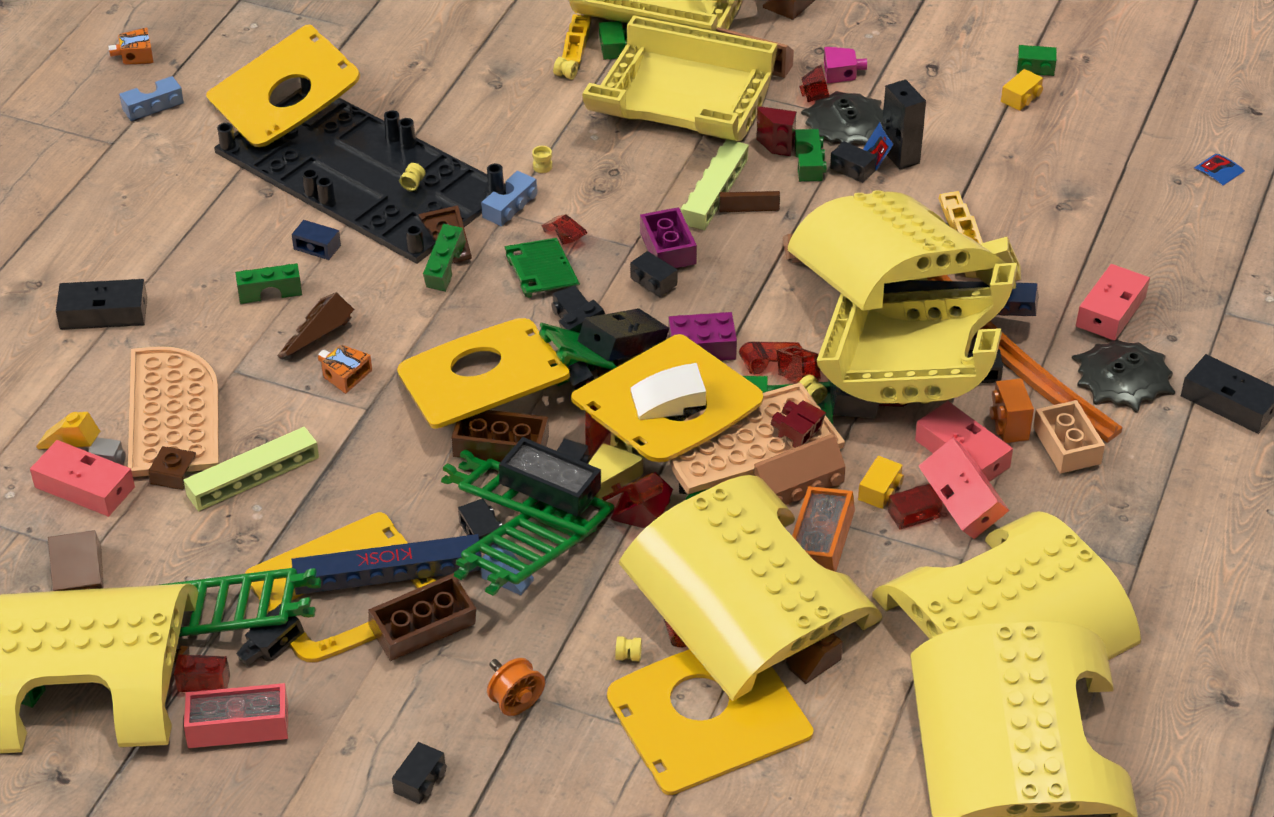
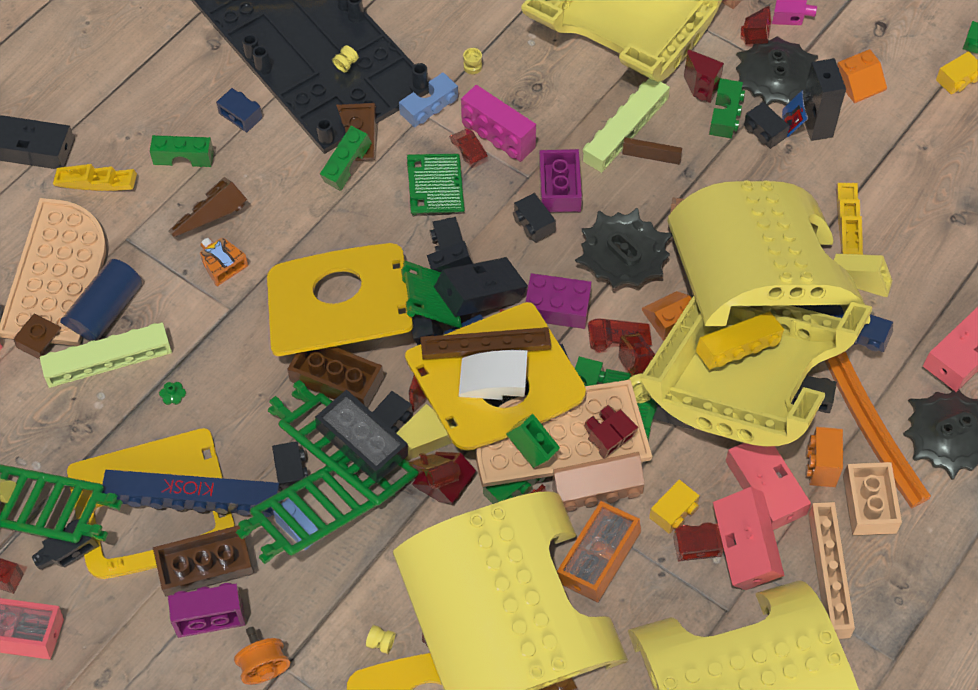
camera: 15 degrees right, 15 degrees up
(175, 324) = (96, 179): none -> yellow slope
(232, 420) = (102, 300): none -> dark blue brick
(332, 490) = (172, 393): none -> green plant
(442, 657) = (206, 610): none -> magenta brick
(589, 202) = (498, 123): none -> dark pink brick
(633, 373) = (475, 343): none -> reddish brown plate
(728, 438) = (533, 440): none -> green brick
(752, 283) = (624, 249): none -> pearl dark grey piece
(813, 329) = (666, 312): none -> orange slope
(897, 323) = (739, 340): none -> yellow brick
(938, 107) = (862, 76): none -> orange slope
(1046, 489) = (831, 568): none -> light nougat brick

